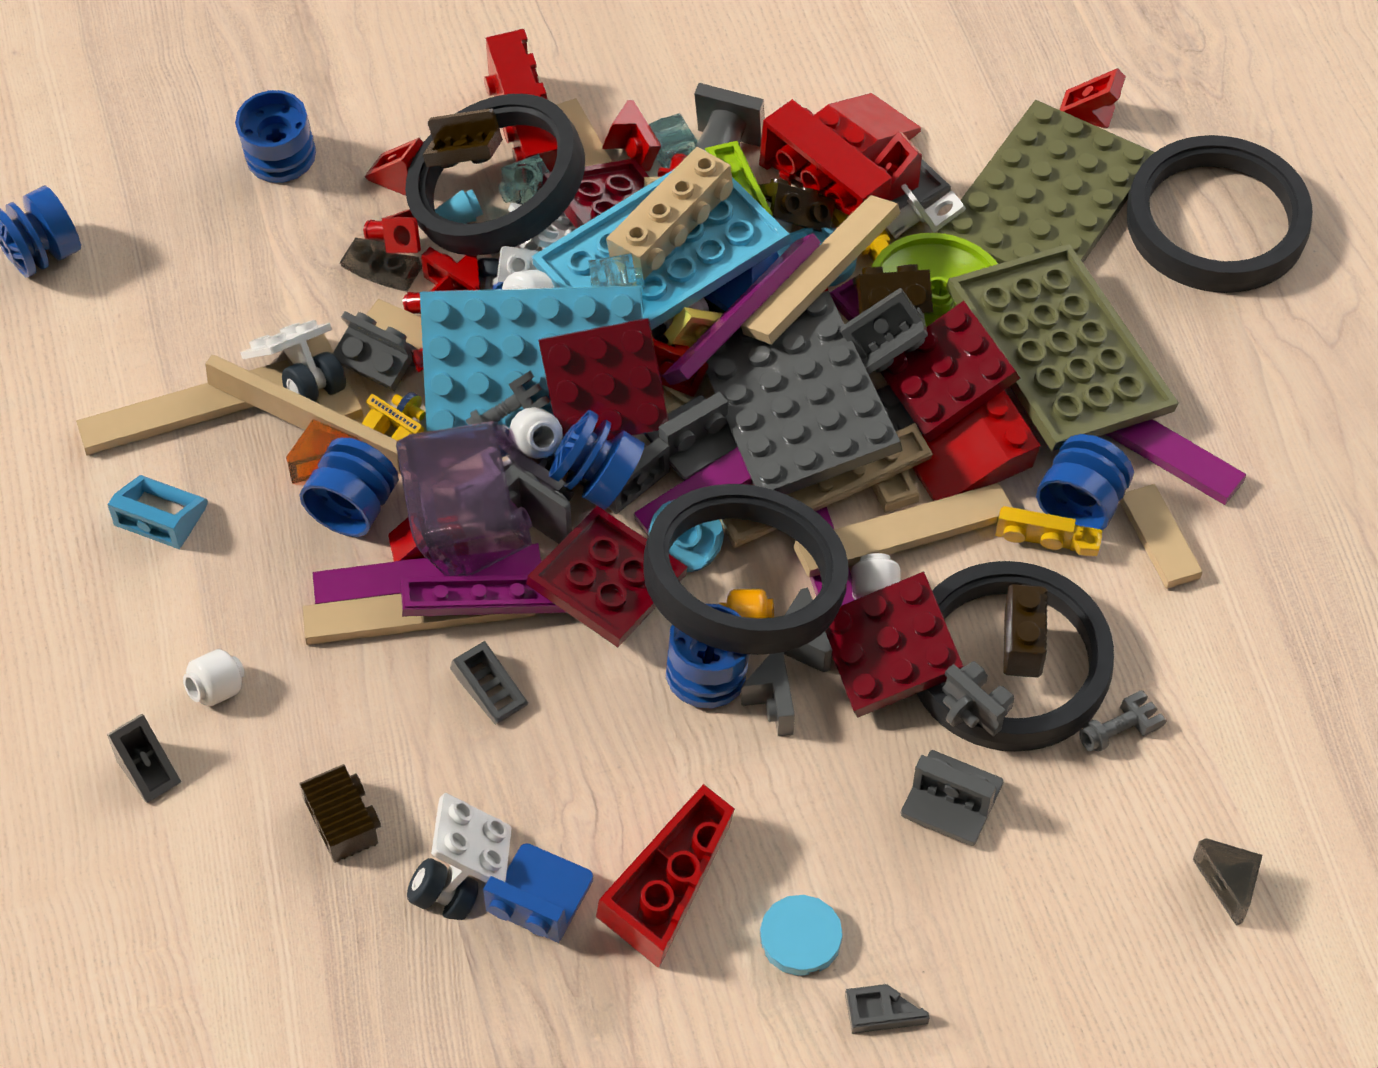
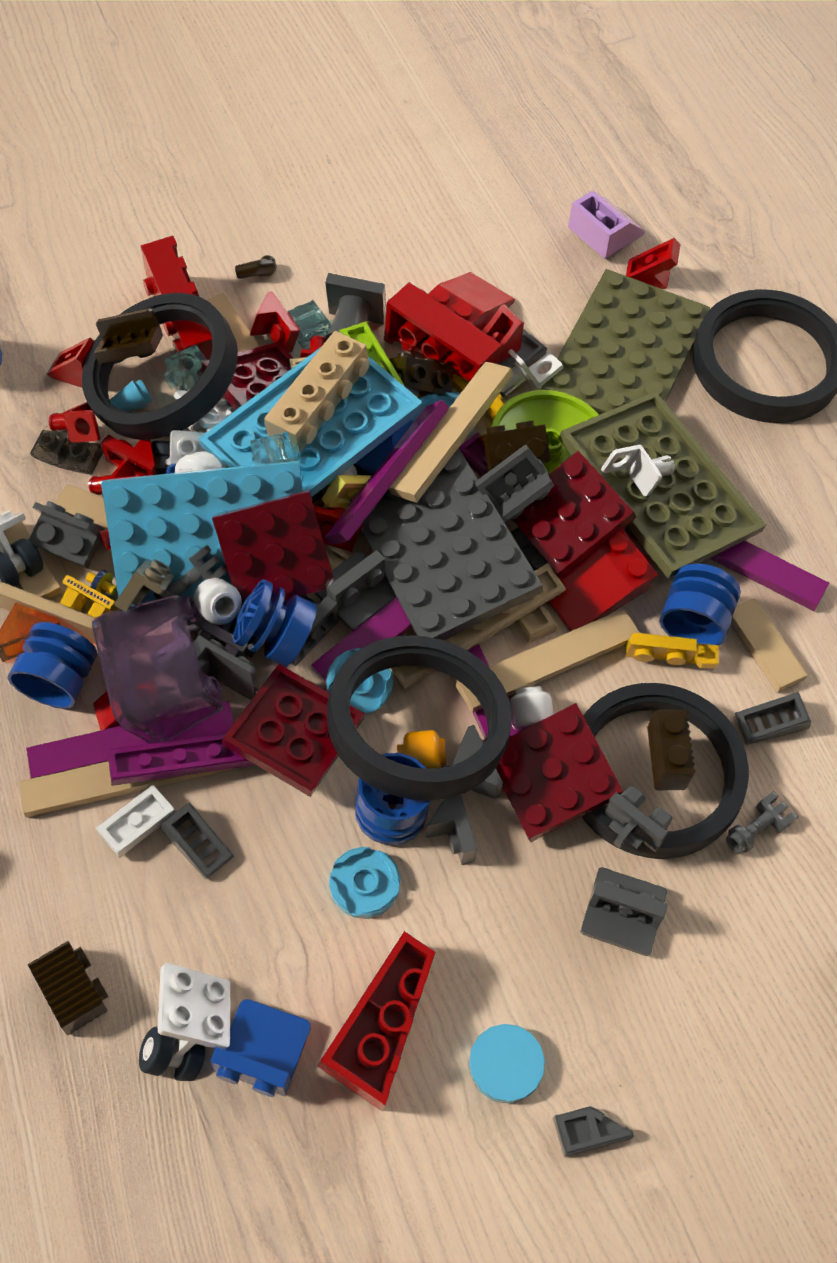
camera: 10 degrees left, 5 degrees up
(424, 656) = (135, 821): none -> white plate
(455, 403) = (148, 576): none -> dark tan bracket
(627, 71) = (264, 267): none -> dark brown arm
(668, 743) = (364, 882): none -> medium azure tile
(1033, 323) = (641, 468): none -> white bracket
(1038, 47) = (602, 224): none -> lavender slope
(1164, 601) = (793, 701): none -> dark grey slope

